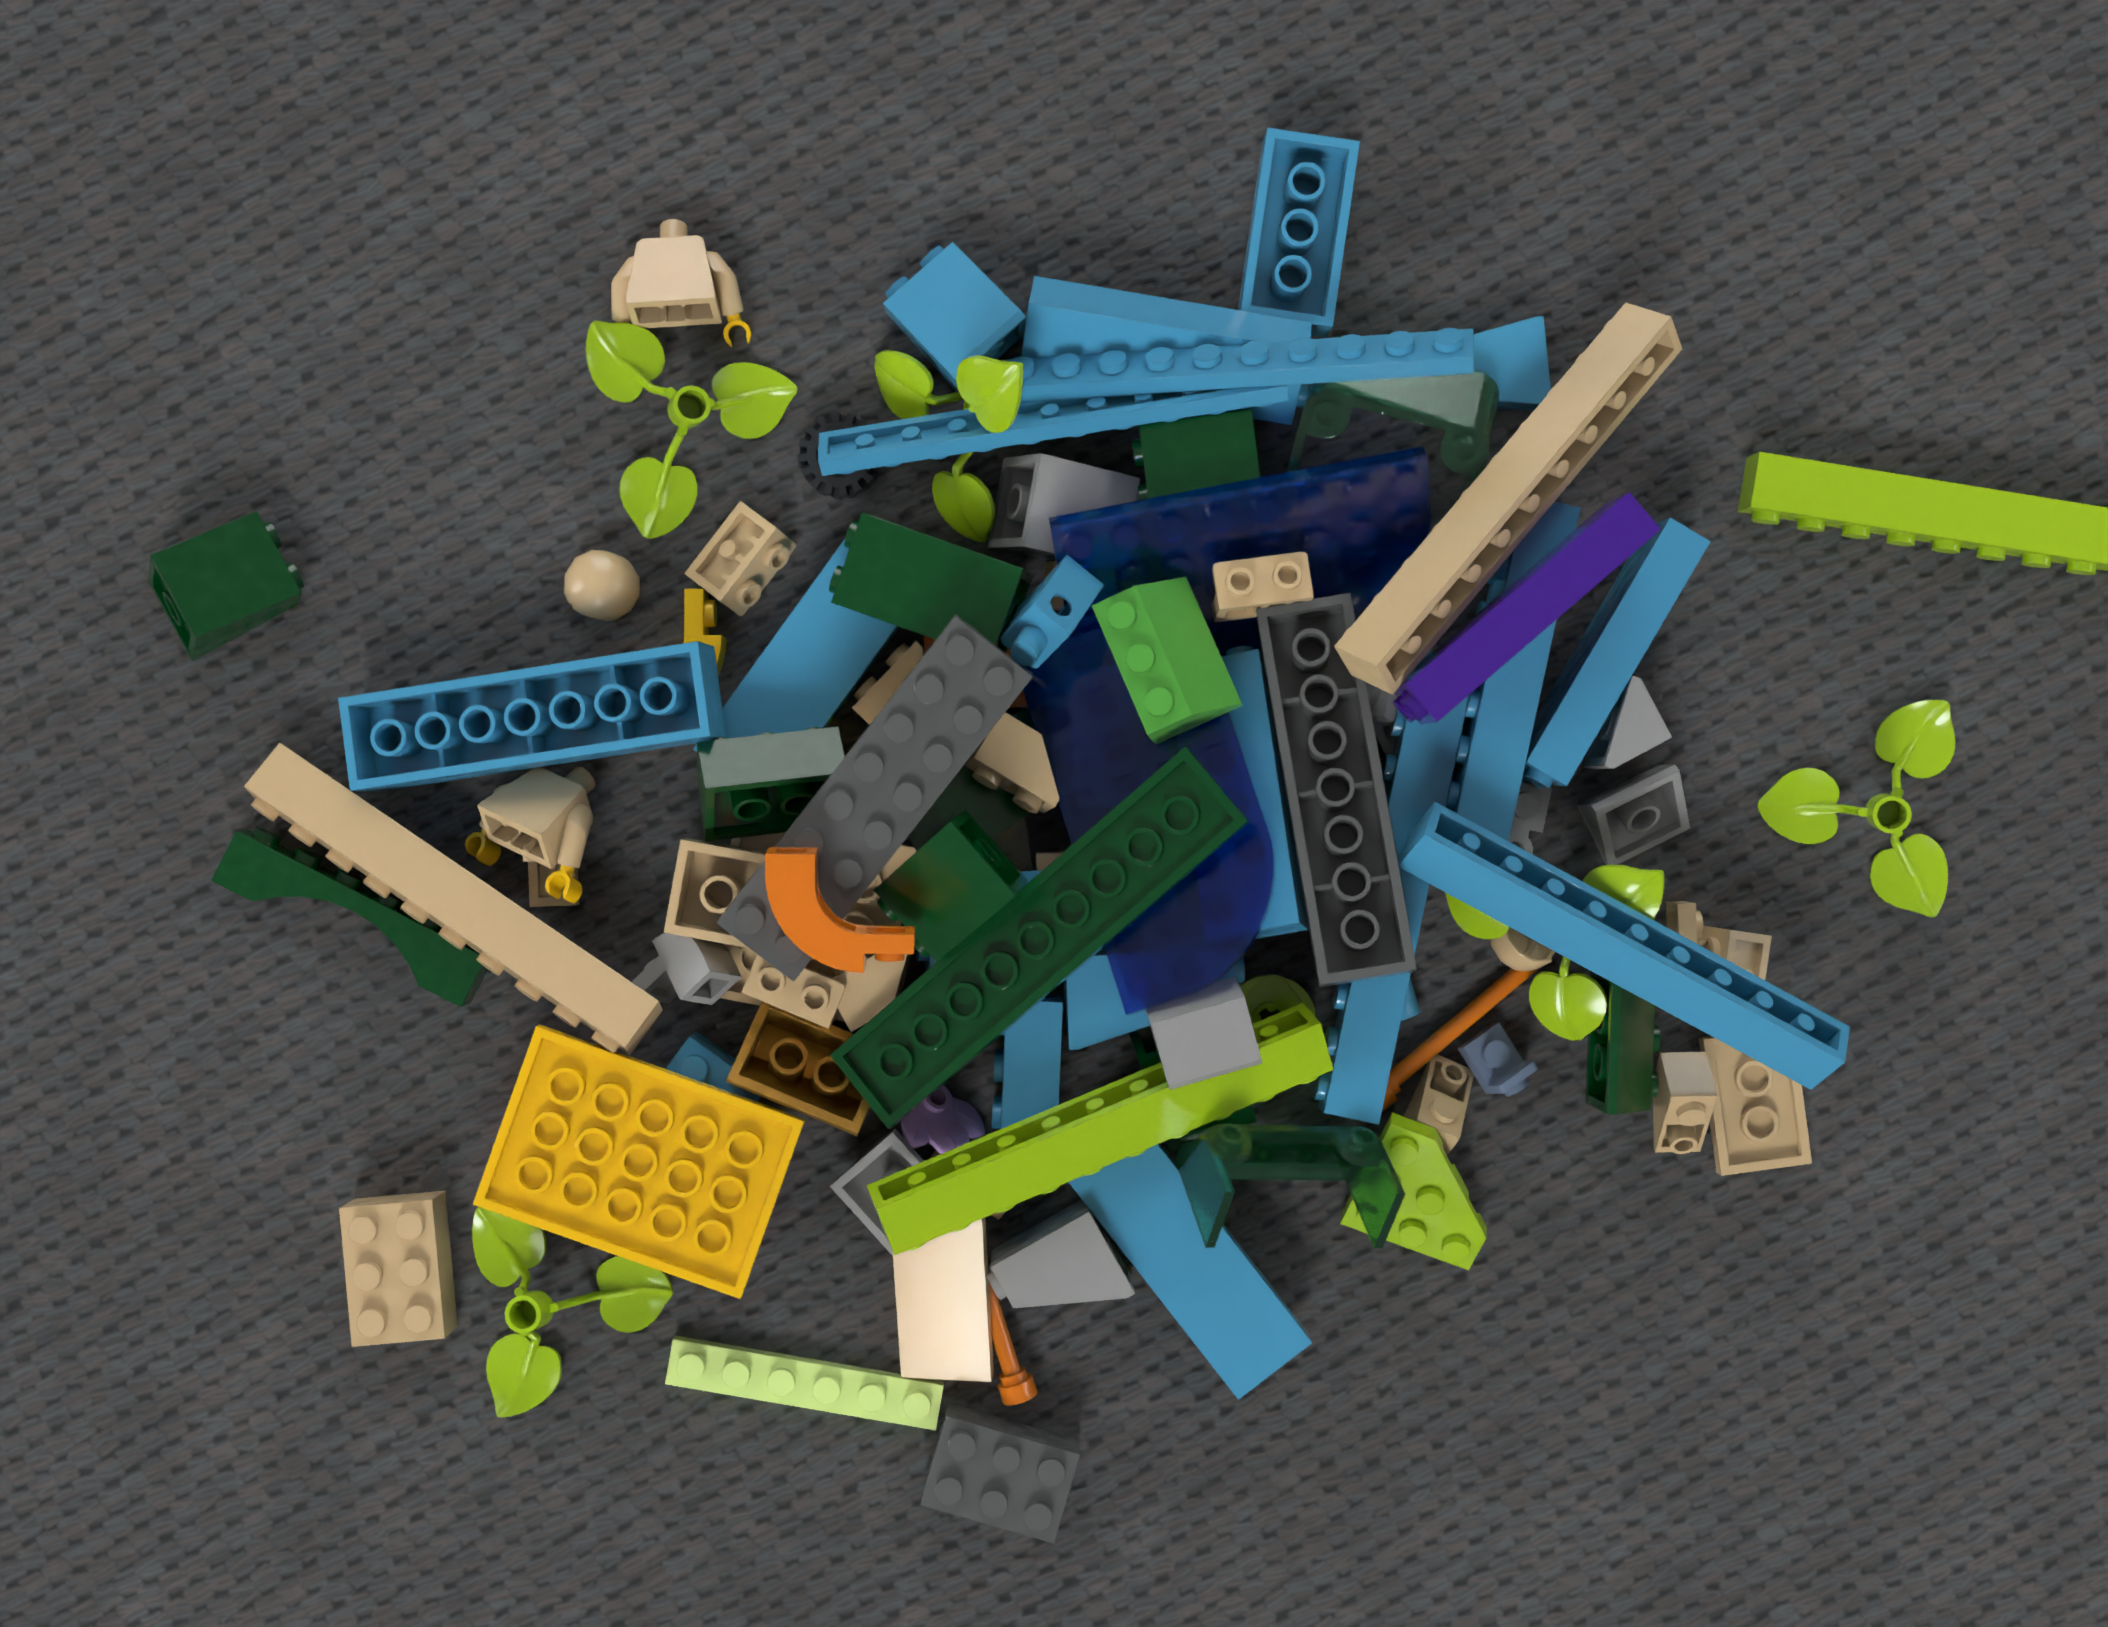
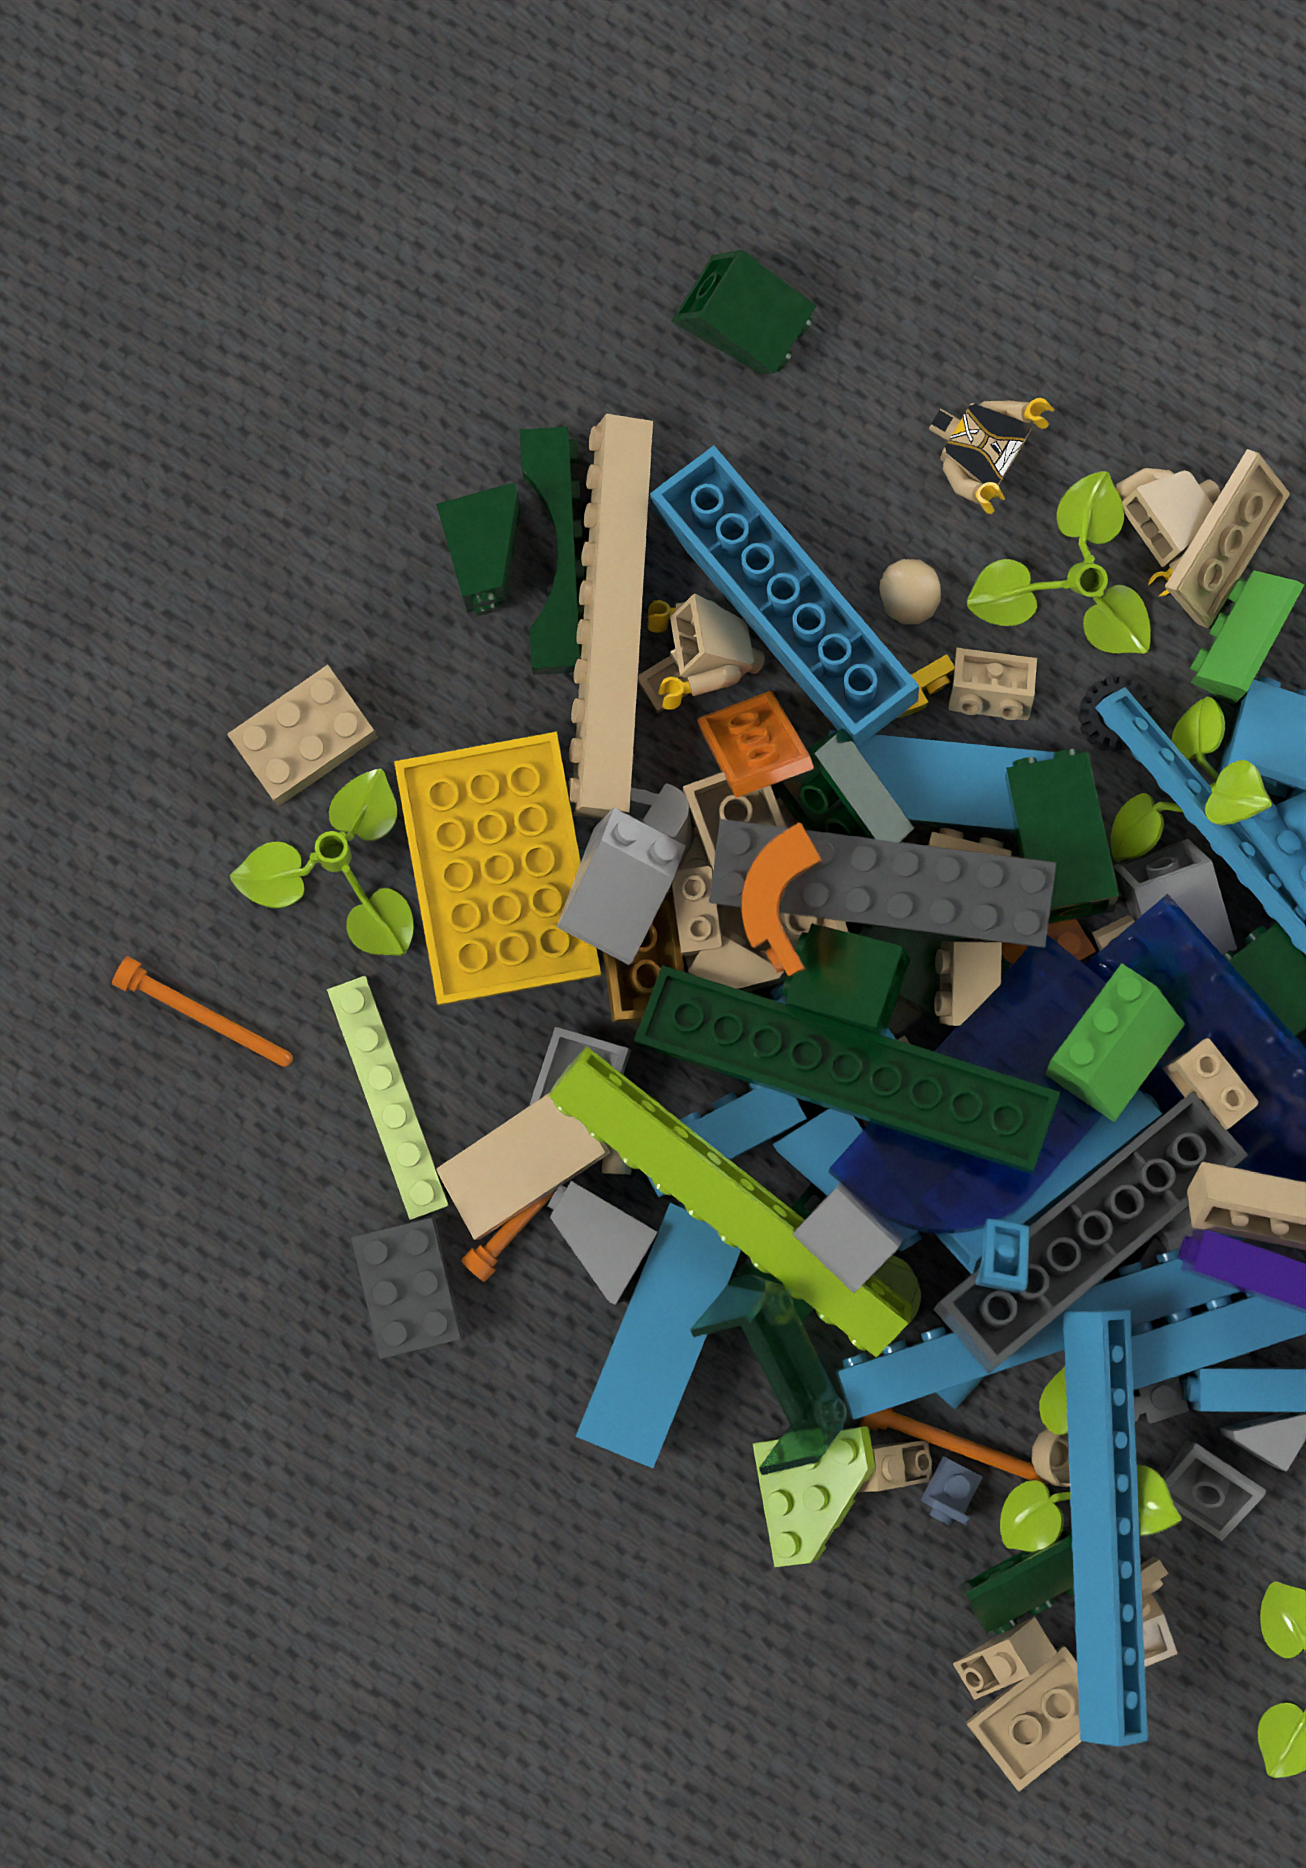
camera: 60 degrees right, 5 degrees down
(306, 984) = (482, 544): none -> dark green slope
(496, 424) = (985, 445): none -> torso
(542, 1565) = (135, 978): none -> orange piece
(663, 836) = (754, 744): none -> orange tile
(726, 1054) = (620, 885): none -> light grey slope
(730, 241) = (1227, 539): none -> tan tile
(835, 282) = (1244, 634): none -> bright green slope
(942, 1124) = (655, 1076): lavender plate -> none
(1036, 627) = (1082, 936): dark azure torso -> none
(1314, 898) = (1004, 1256): none -> dark azure slope

